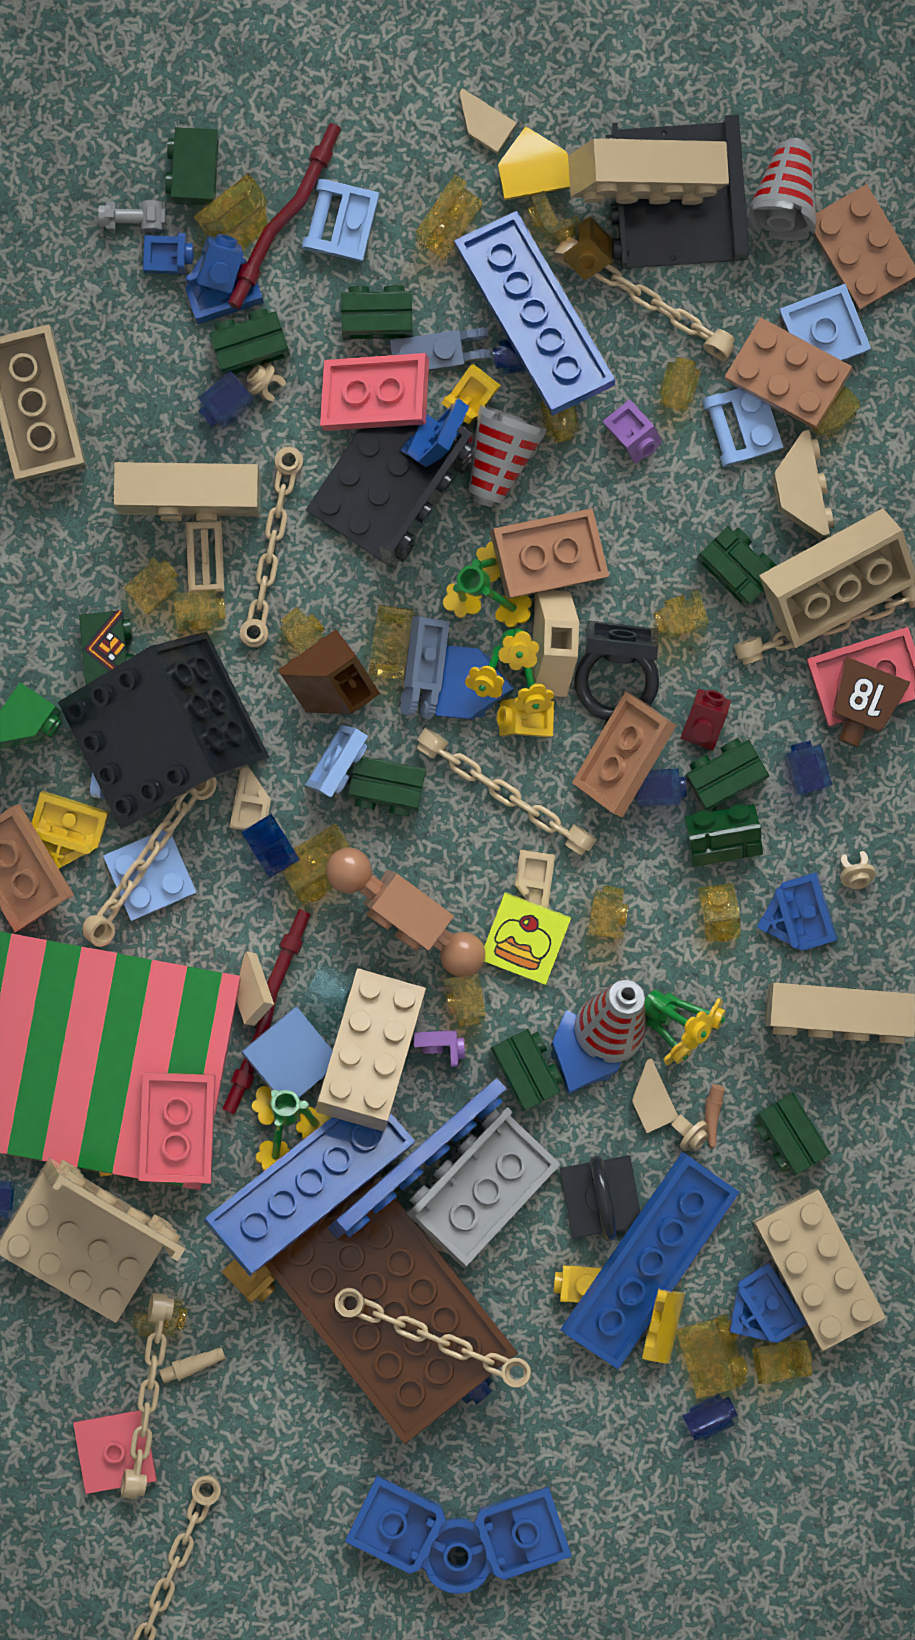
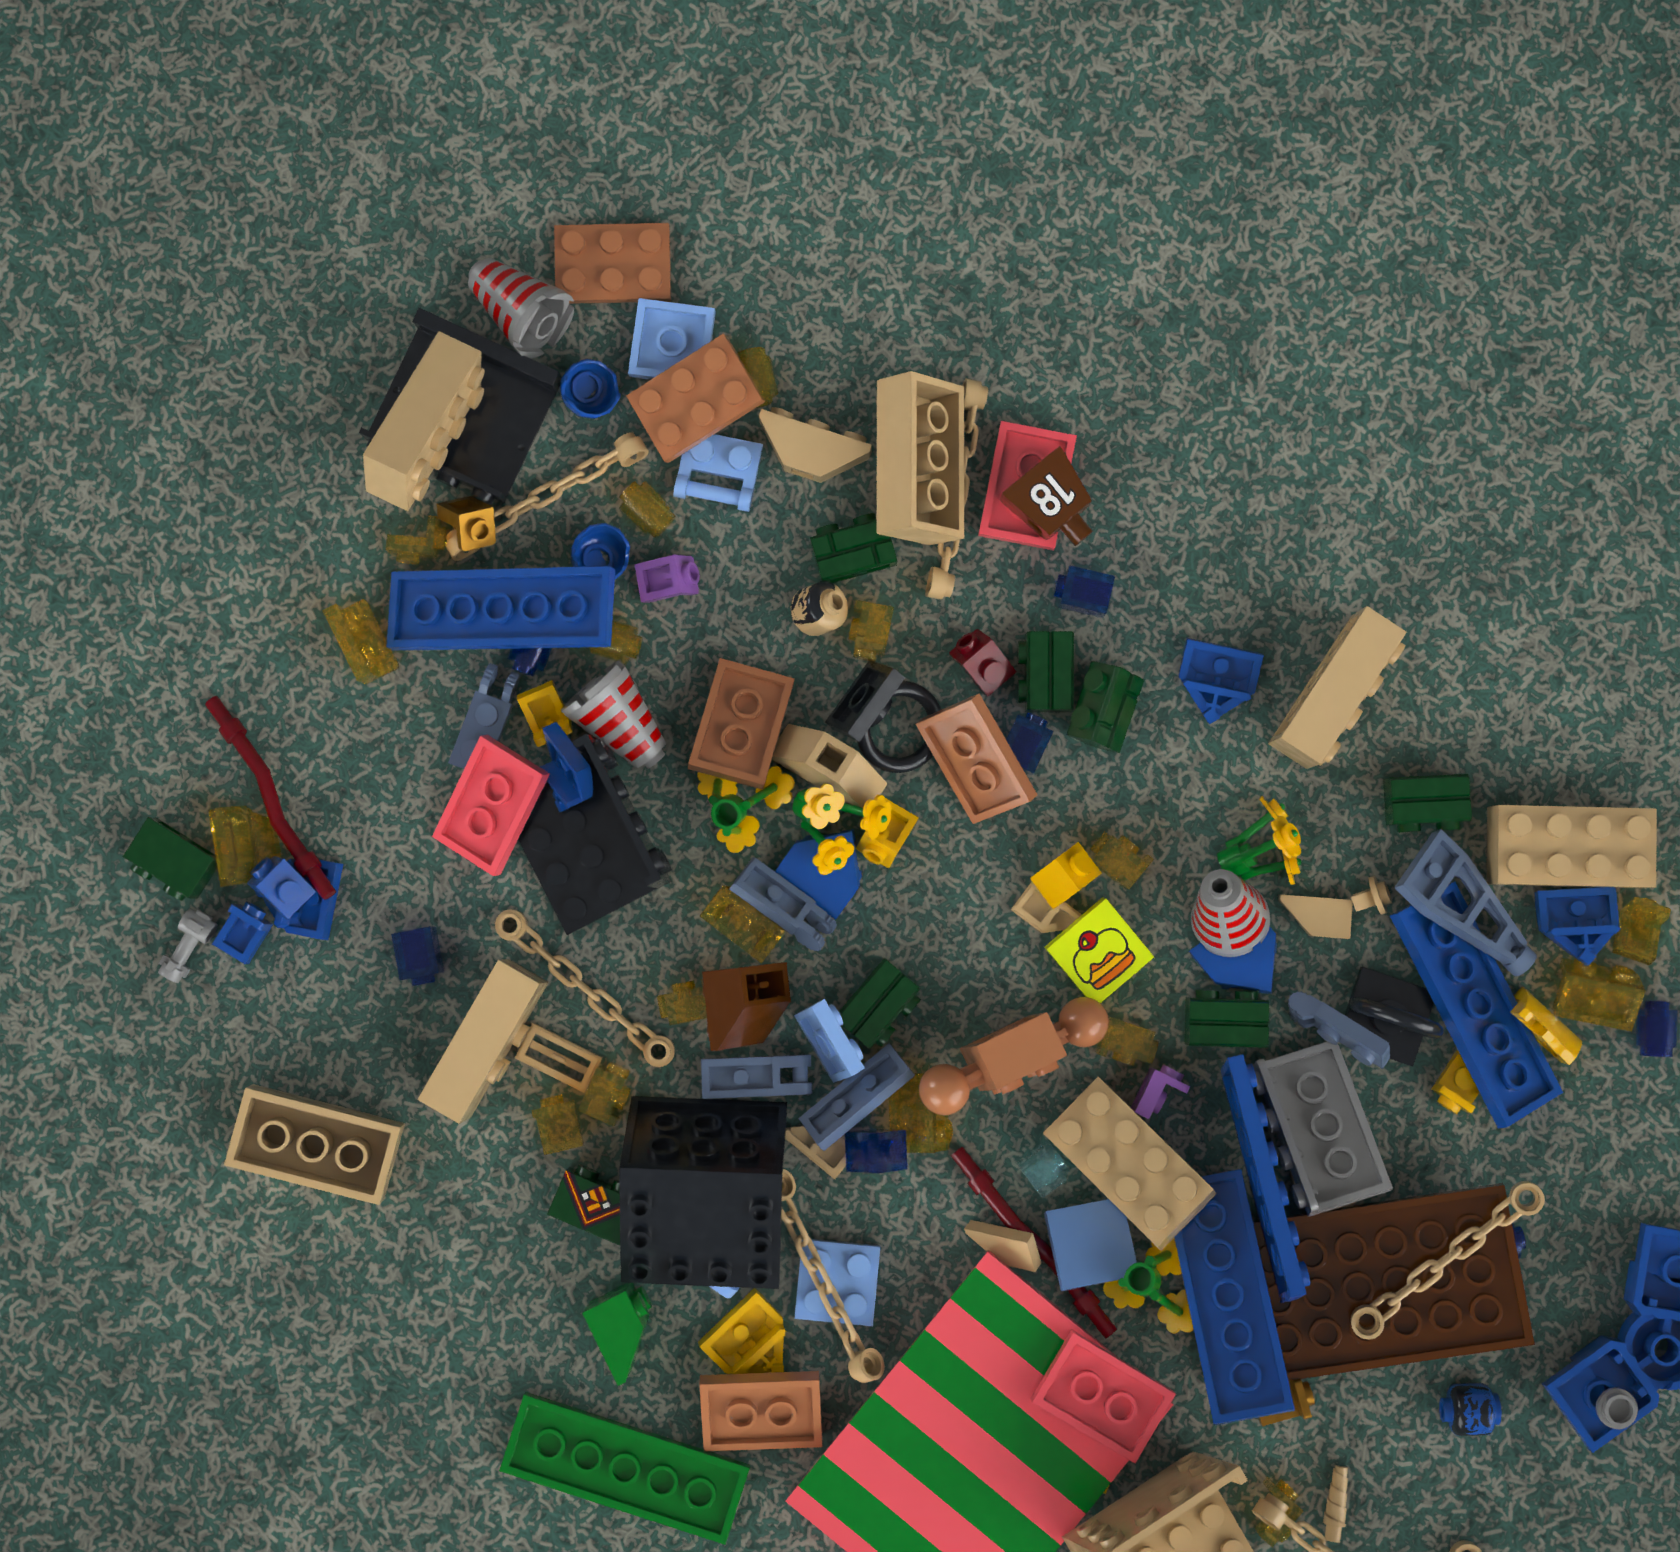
camera: 55 degrees left, 0 degrees up
(249, 342) = (373, 900): dark green brick -> none
(259, 379) = (415, 909): tan plate -> none
(275, 719) = (754, 1076): none -> sand blue plate
(304, 807) = (856, 1097): none -> sand blue plate
(325, 1430) = (1470, 1409): none -> head
(352, 222) = (315, 736): light blue plate -> none
(376, 313) = (414, 761): dark green brick -> none
(390, 1539) = (1616, 1408): none -> light grey plate
(433, 744) = (1030, 849): tan piece -> none
(485, 123) = (289, 554): tan tile -> none
(533, 167) = (358, 532): yellow slope -> none
(569, 1157) = (1336, 1028): none -> sand blue hinge
(571, 877) = (1065, 875): none -> yellow brick
(623, 354) = (604, 537): none -> blue hair
(675, 564) = (819, 608): none -> tan head
(712, 1110) = (1360, 863): nougat helmet -> none
(720, 912) = (1175, 751): clear yellow bracket -> none
(732, 1166) = (1429, 877): none -> sand blue plate
(750, 275) = (581, 381): none -> blue hair
(857, 875) = (1212, 601): tan plate -> none

